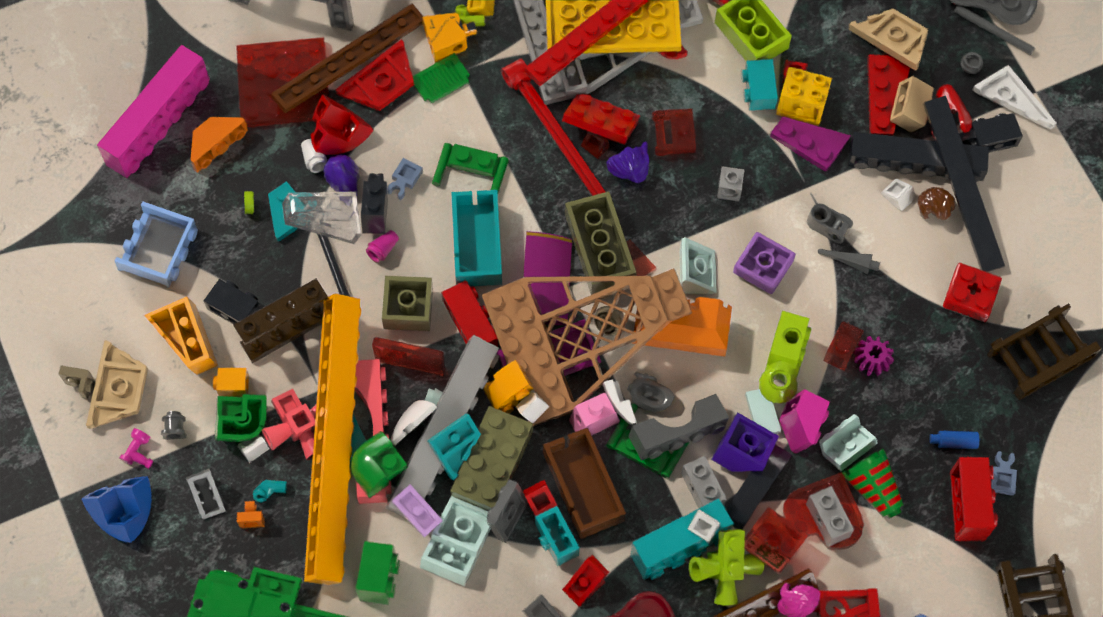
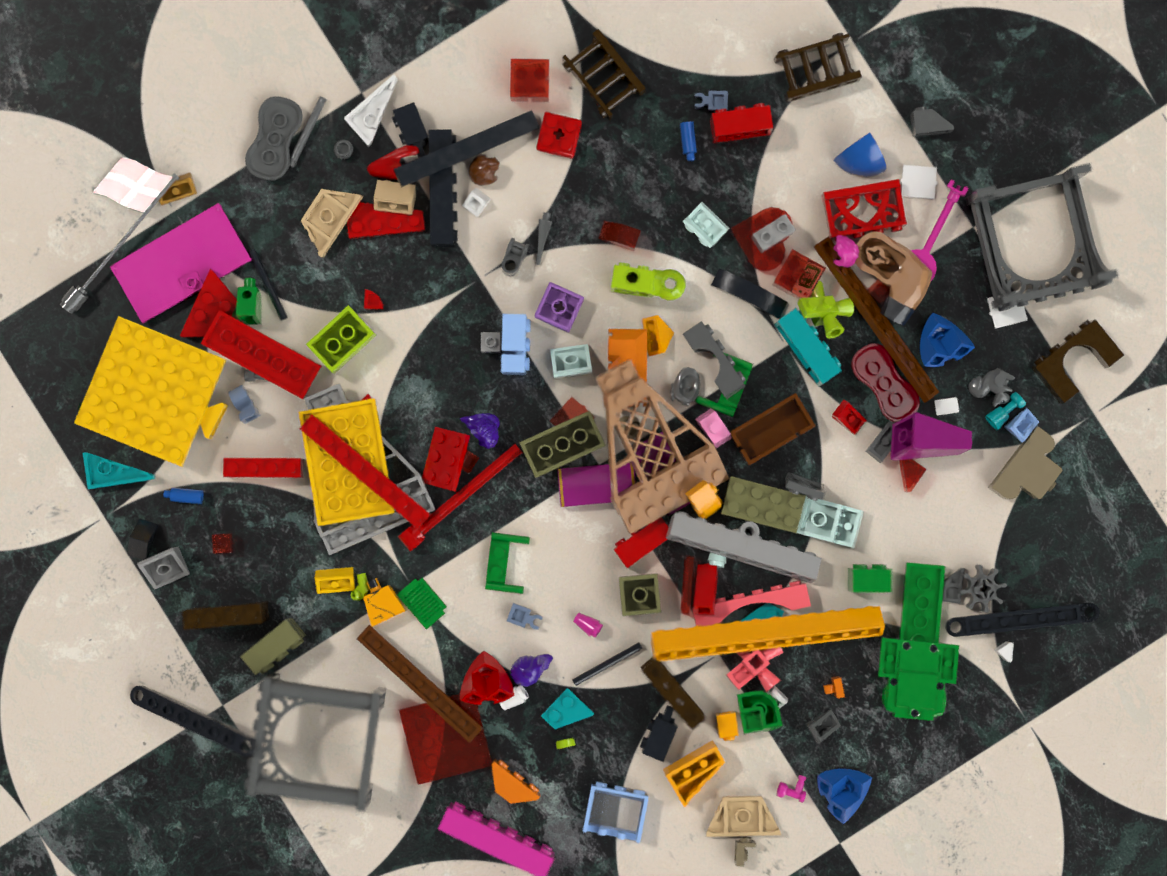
camera: 90 degrees left, 20 degrees up
(173, 426) = (769, 764): dark grey brick -> none
(267, 488) = (808, 679): teal arm -> none
(324, 214) = (571, 675): clear wedge -> none
(374, 205) = (554, 637): black hinge -> none
(376, 464) = (784, 595): green brick -> none
(380, 80) = (432, 652): red wing -> none
(399, 376) = (706, 589): none -> red brick
(411, 418) = (739, 574): white brick -> none
(417, 511) = (818, 556): lavender plate -> none
(454, 444) = (760, 535): teal wing -> none
(477, 238) = (573, 547): teal piece -> none
(532, 407) = (718, 478): white slope -> none
(540, 498) = (789, 462): red brick -> none
(556, 536) = (818, 444): teal brick -> none
(615, 396) = (699, 413): white brick -> none
(681, 131) = (446, 389): clear red plate -> none
(702, 482) = (758, 335): light grey brick -> none
(704, 525) = (803, 329): white slope -> none
(718, 371) = (658, 335): none -> light orange slope
(735, 208) = (515, 344): none -> light blue piece
(745, 446) = (721, 305): dark purple slope -> none
(760, 85) = (394, 327): teal brick -> none
(762, 411) = (693, 293): light aqua tile -> none
(803, 96) = (397, 289): yellow bracket -> none
(803, 419) = (697, 261): dark pink slope -> none
(809, 141) = (438, 279): magenta wing -> none
(876, 483) = (735, 201): green cone -> none
(877, 348) = (631, 205): magenta gear -> none
(1041, 264) = (529, 80): none -> clear red piece

